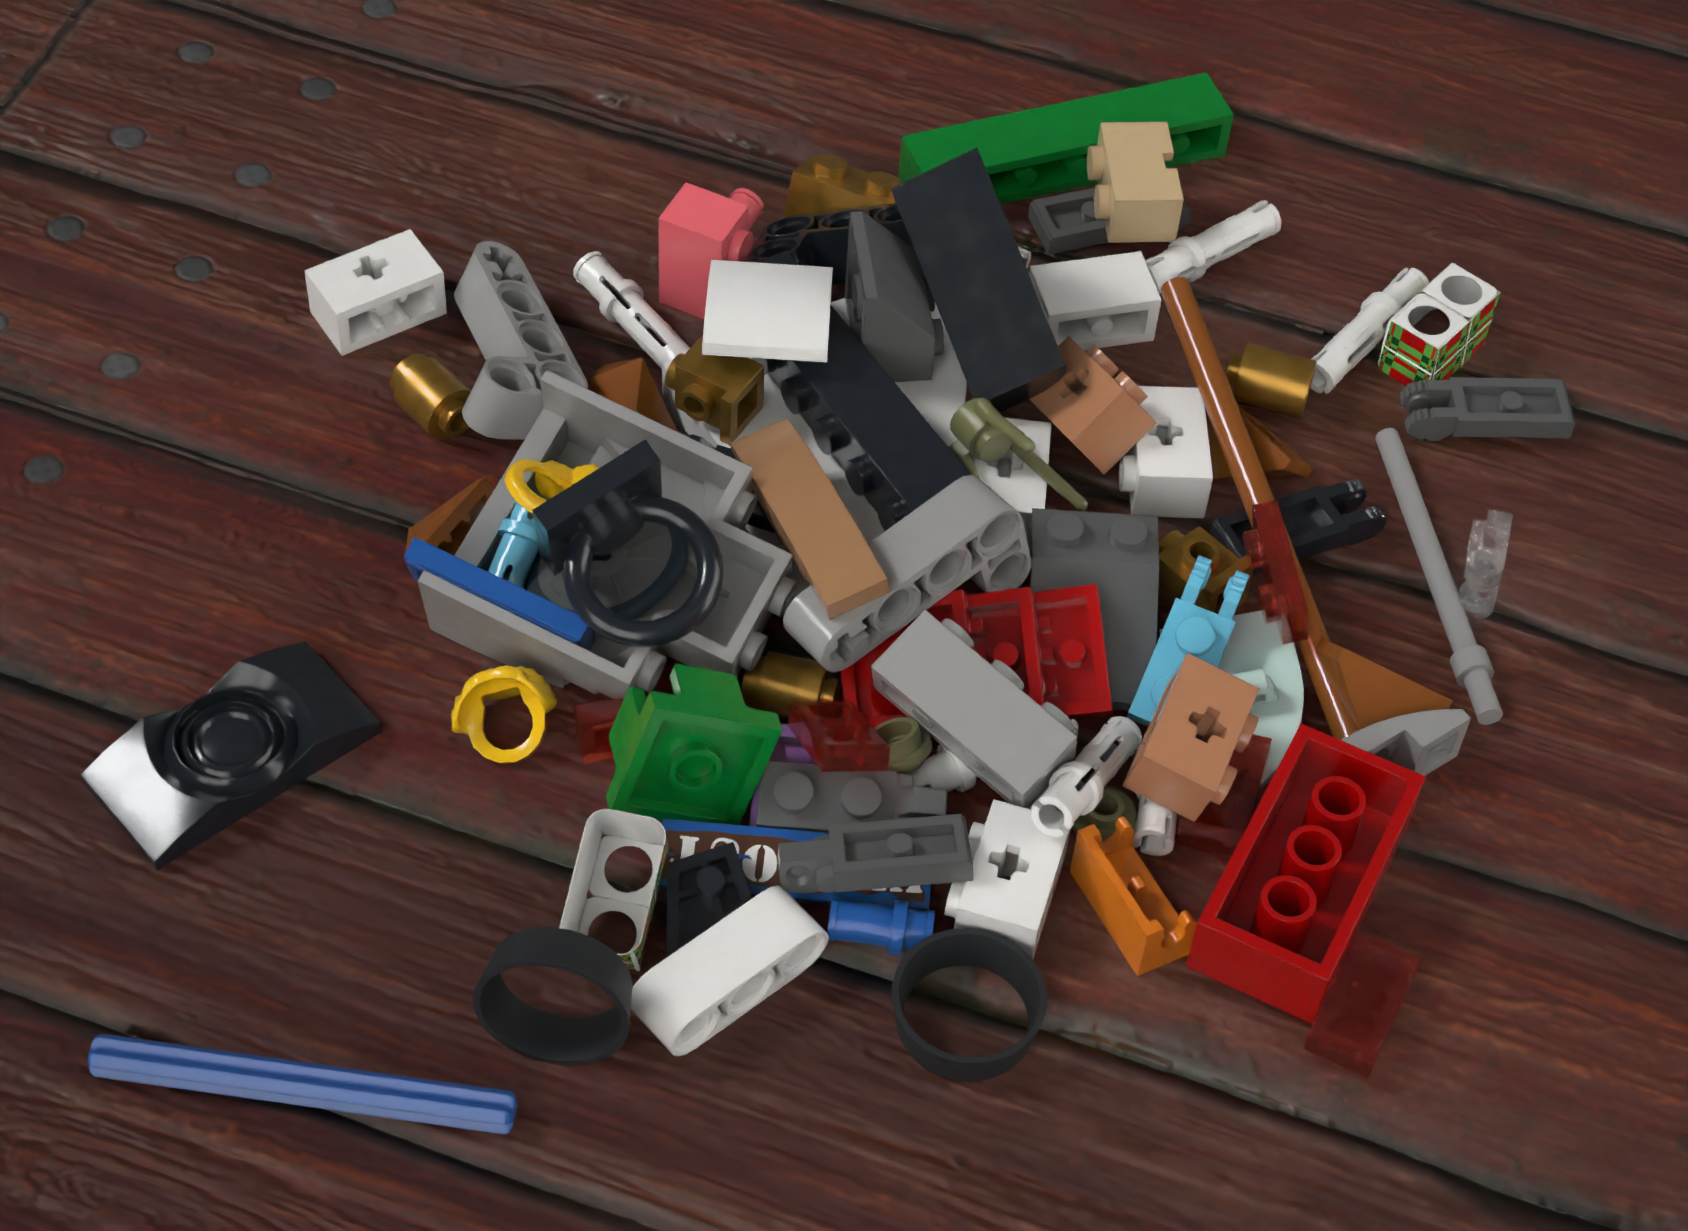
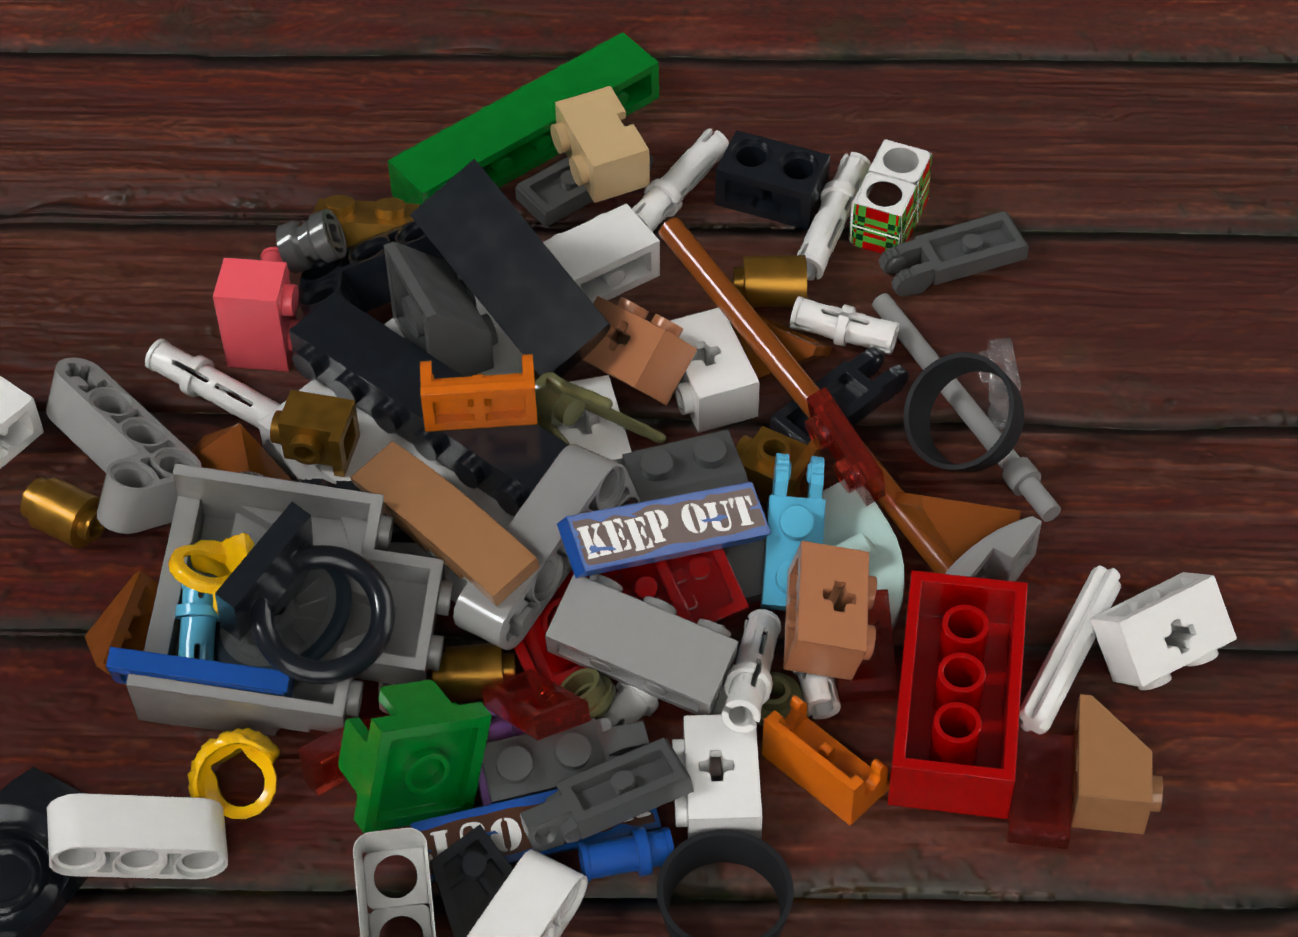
camera: 15 degrees left, 0 degrees up
(377, 741) = (136, 836): none -> white beam
(767, 311) = (342, 352): white slope -> none
(785, 194) = (312, 241): none -> dark grey wheel
(893, 401) = (478, 399): none -> orange hinge
(1041, 595) = (662, 529): none -> tile
(1312, 272) = (771, 179): none -> black brick
(1334, 448) = (844, 325): none -> white pin
(1394, 544) = (924, 393): none -> black tyre
(1447, 1013) = (1111, 773): none -> medium nougat slope
(1451, 866) = (1068, 651): none -> white axle
(1567, 878) = (1164, 630): none -> white brick

